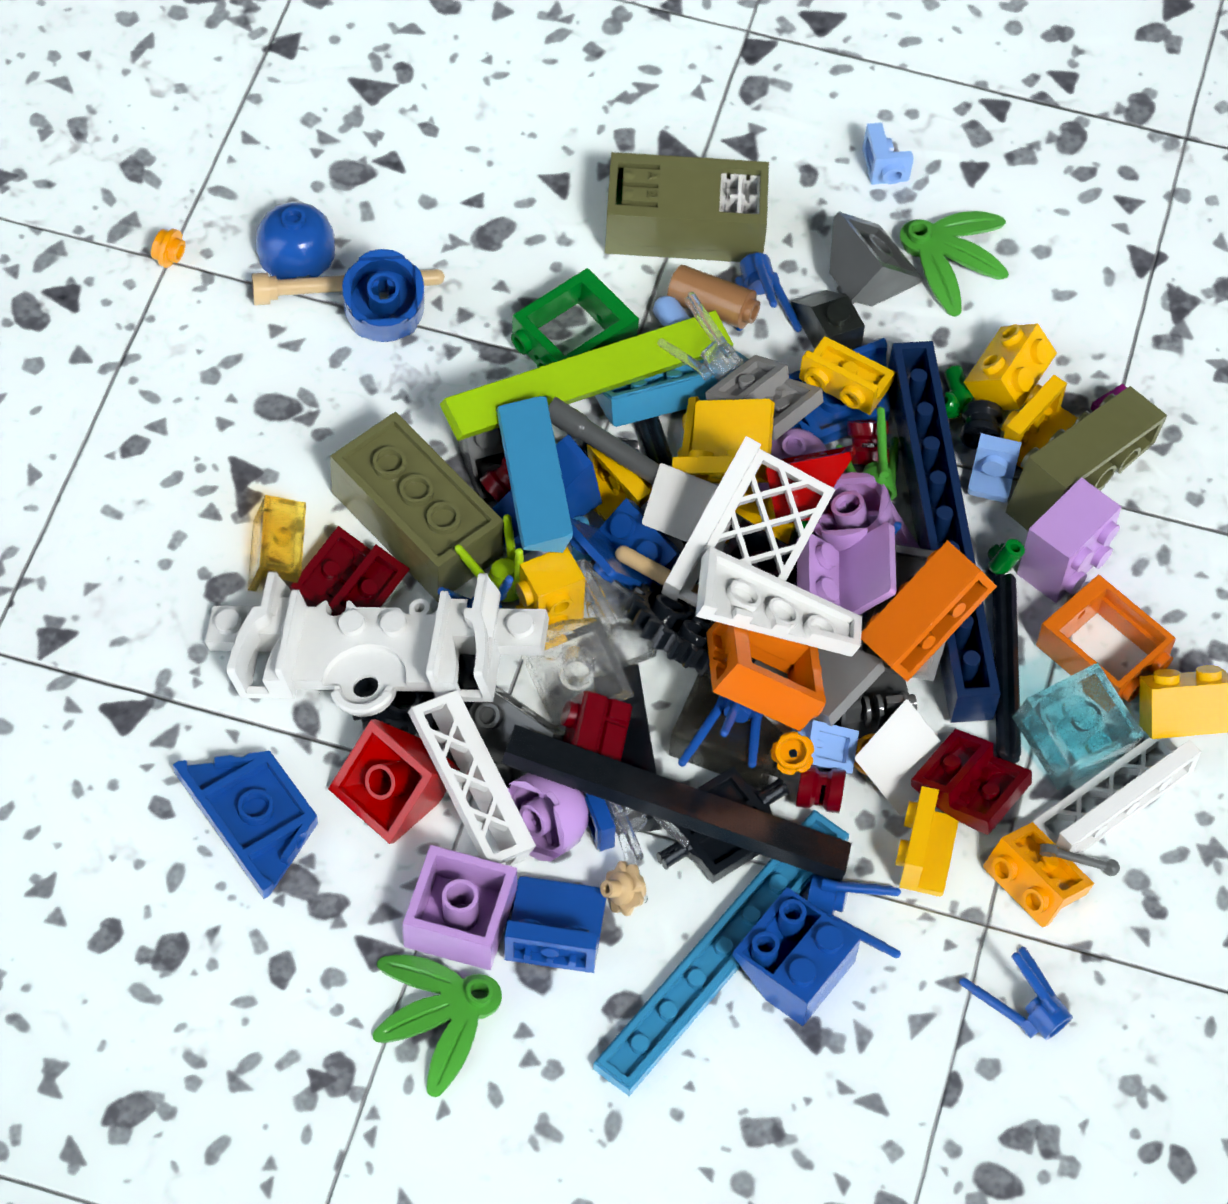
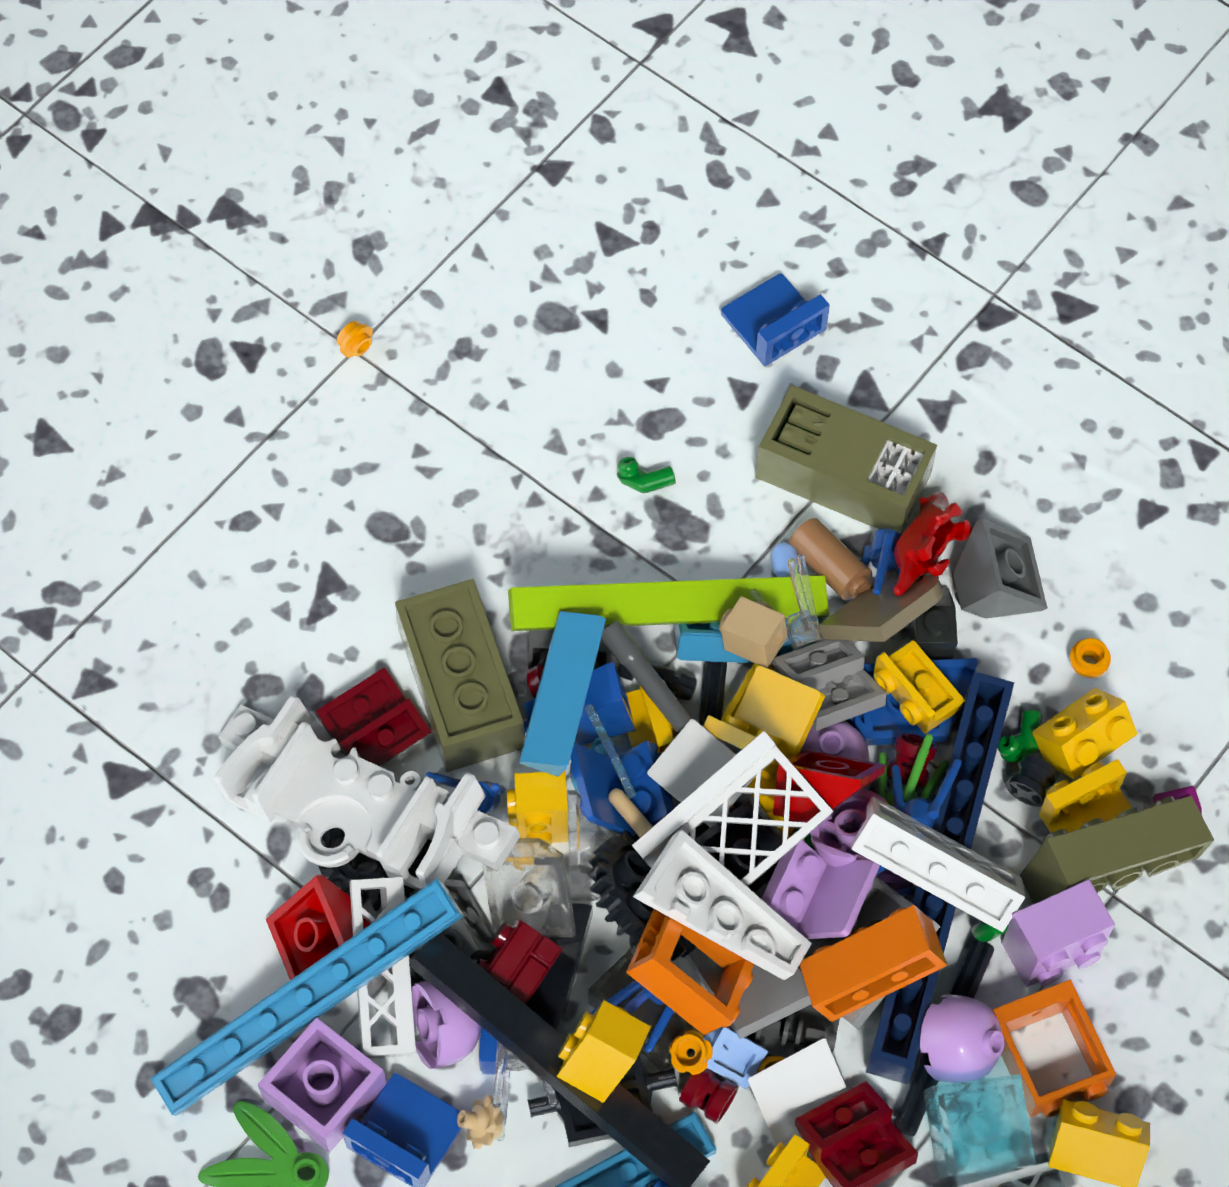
camera: 25 degrees right, 5 degrees up
(252, 811) = (187, 918): blue wing -> none
(269, 288) = (426, 409): tan piece -> none
(277, 540) = (323, 664): clear yellow panel -> none
(295, 241) = (472, 372): blue cylinder -> none
(383, 318) = (511, 436): blue brick -> none
(411, 832) = (306, 997): none -> dark azure tile
(500, 287) = (641, 480): none -> green arm
(501, 567) = (507, 766): lime plant -> none
(561, 109) = (776, 318): none -> blue bracket
(594, 297) = (712, 507): green window -> none
(601, 512) = (610, 750): none -> clear light blue piece
(679, 372) = (753, 631): none -> tan brick
(720, 769) = (602, 1050): none -> yellow brick
(789, 321) = (882, 615): none -> dark tan tile
(794, 248) = (927, 539): none -> red animal
(881, 160) = (1060, 478): light blue bracket -> none
(902, 478) = (918, 807): none -> blue plant
(941, 239) = (1080, 578): bright green plant -> none
(945, 510) = (939, 864): none -> white fence
(985, 299) = (1095, 649): none -> light orange plate
(994, 468) = (1021, 831): light blue bracket -> none
(1029, 655) = (961, 1039): none -> lavender cylinder

